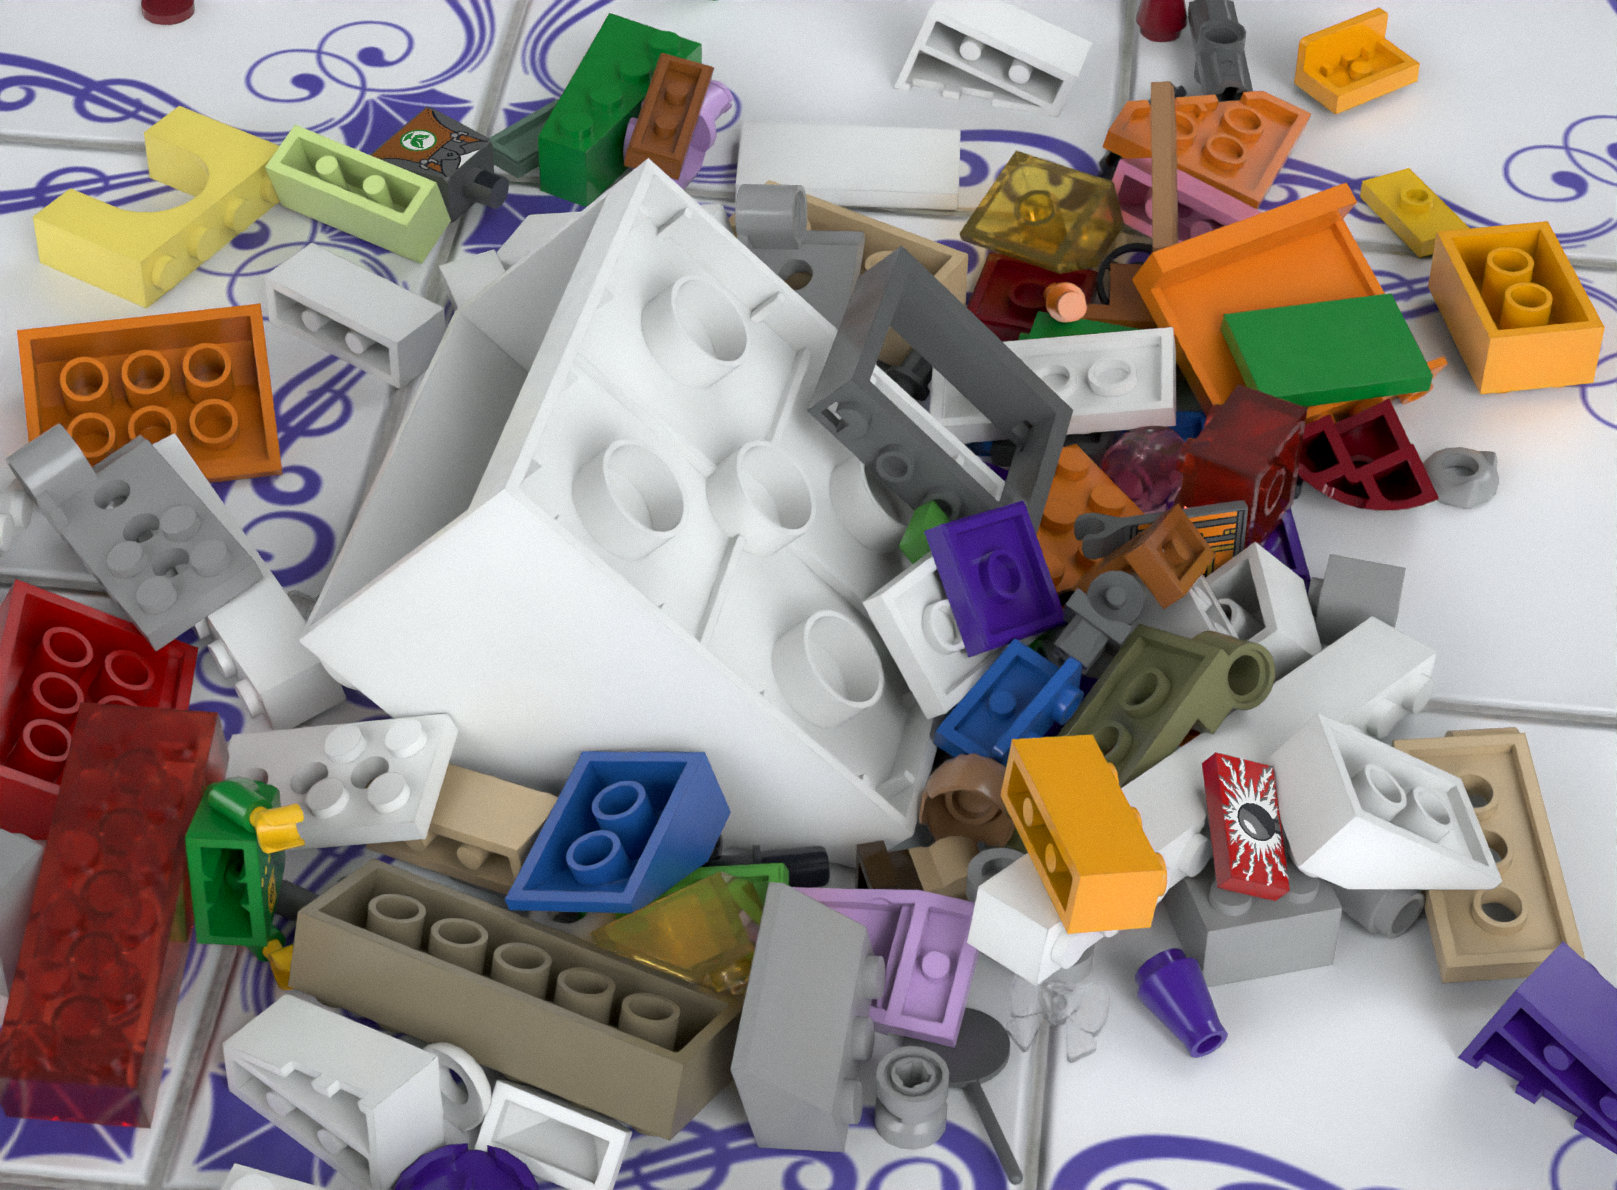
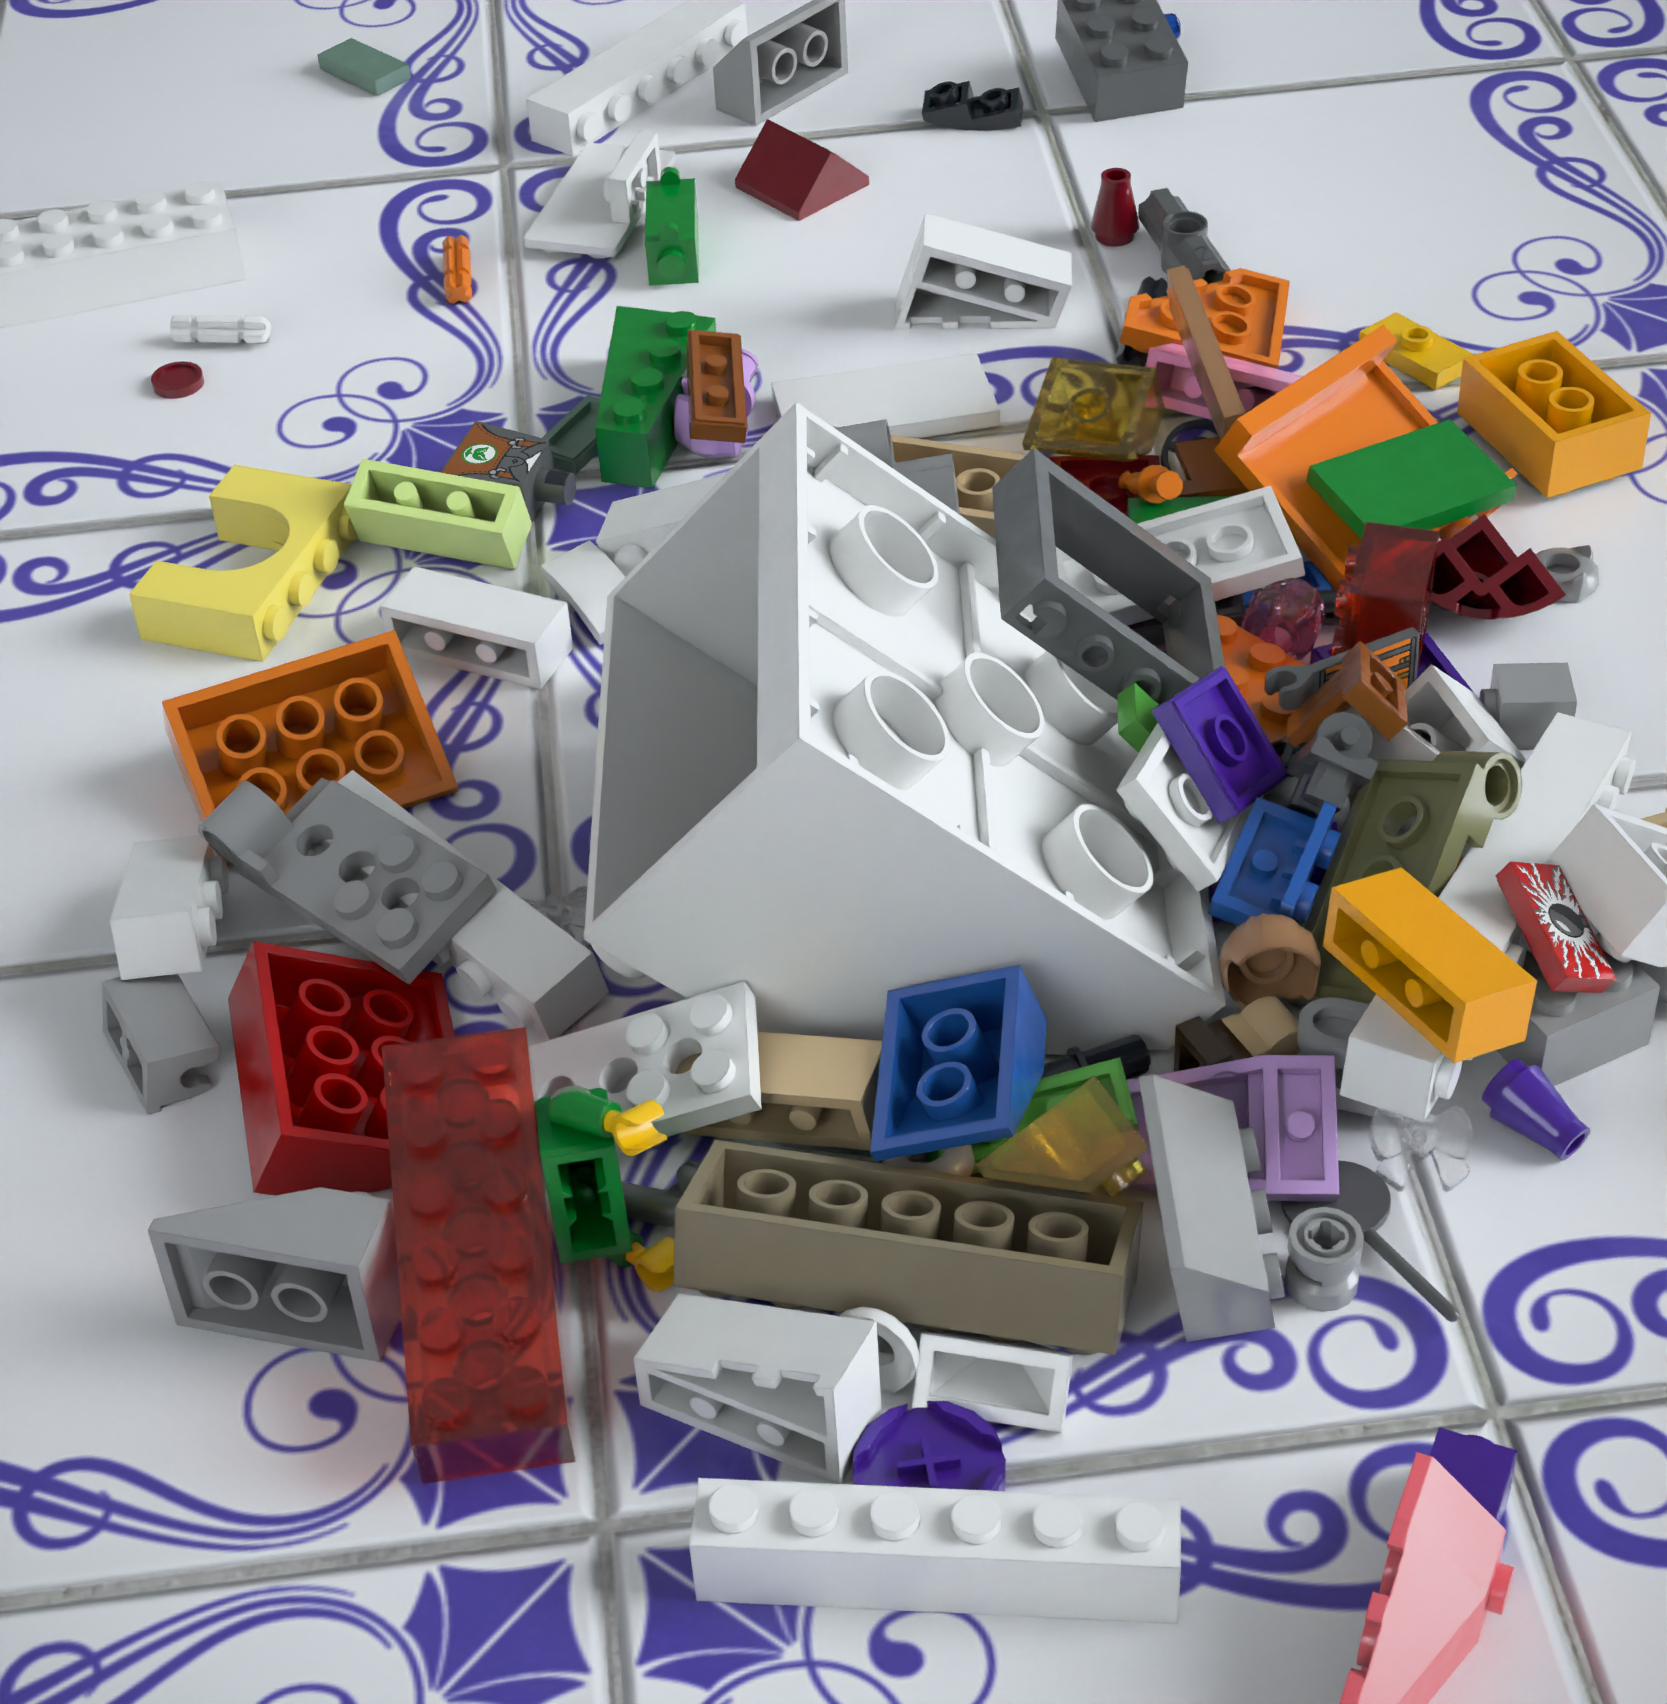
camera: 10 degrees left, 0 degrees up
(1352, 63) = (1305, 232): light orange bracket -> none

